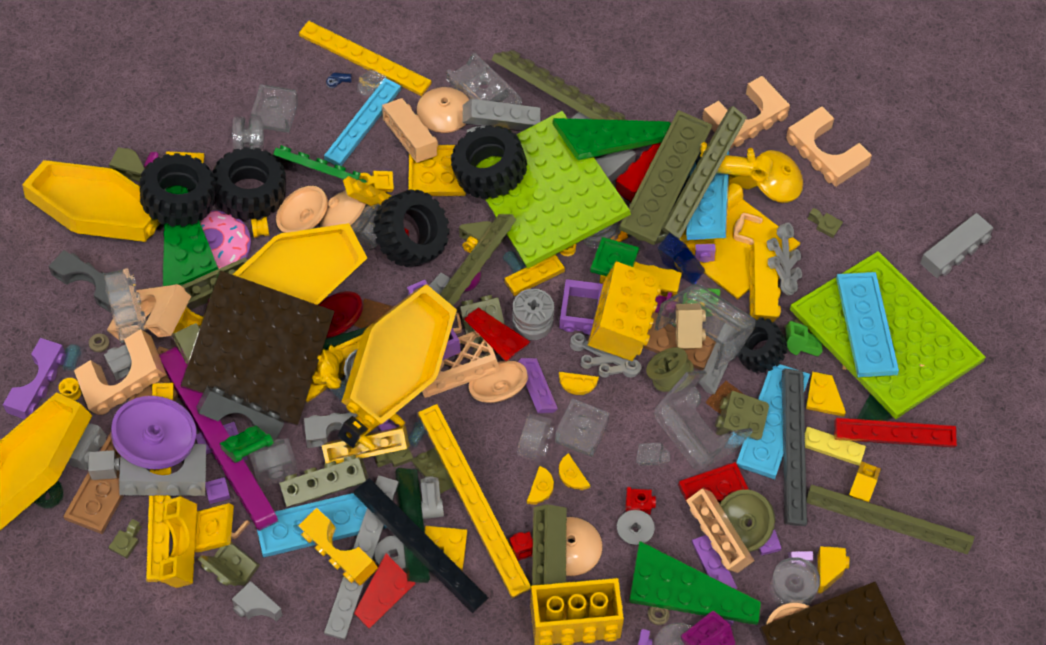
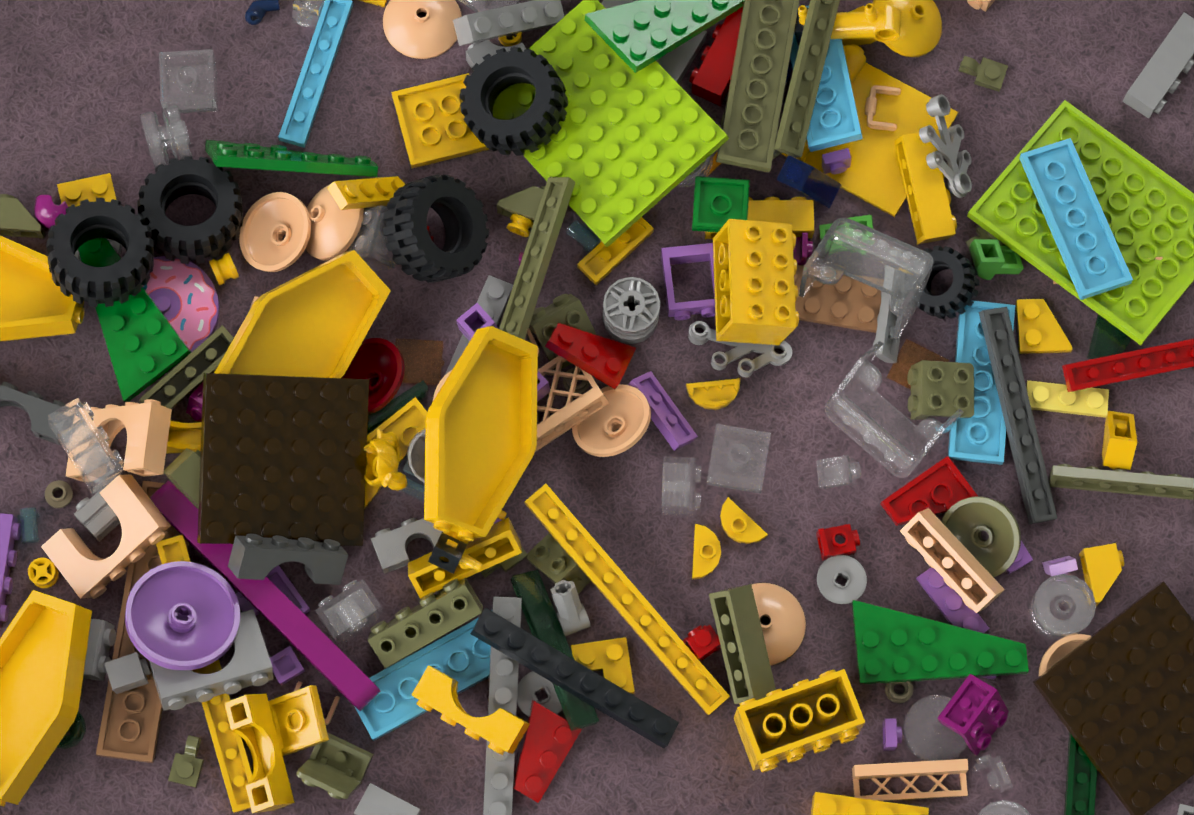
camera: 15 degrees left, 15 degrees up
(246, 443) = (310, 601): green plate -> none
(380, 180) = (371, 164): yellow plate -> none
(409, 130) = (387, 70): light nougat brick -> none
(417, 433) = (522, 519): clear light blue pin -> none
(668, 368) = (819, 352): olive wheel -> none
(689, 325) = (845, 281): tan brick -> none

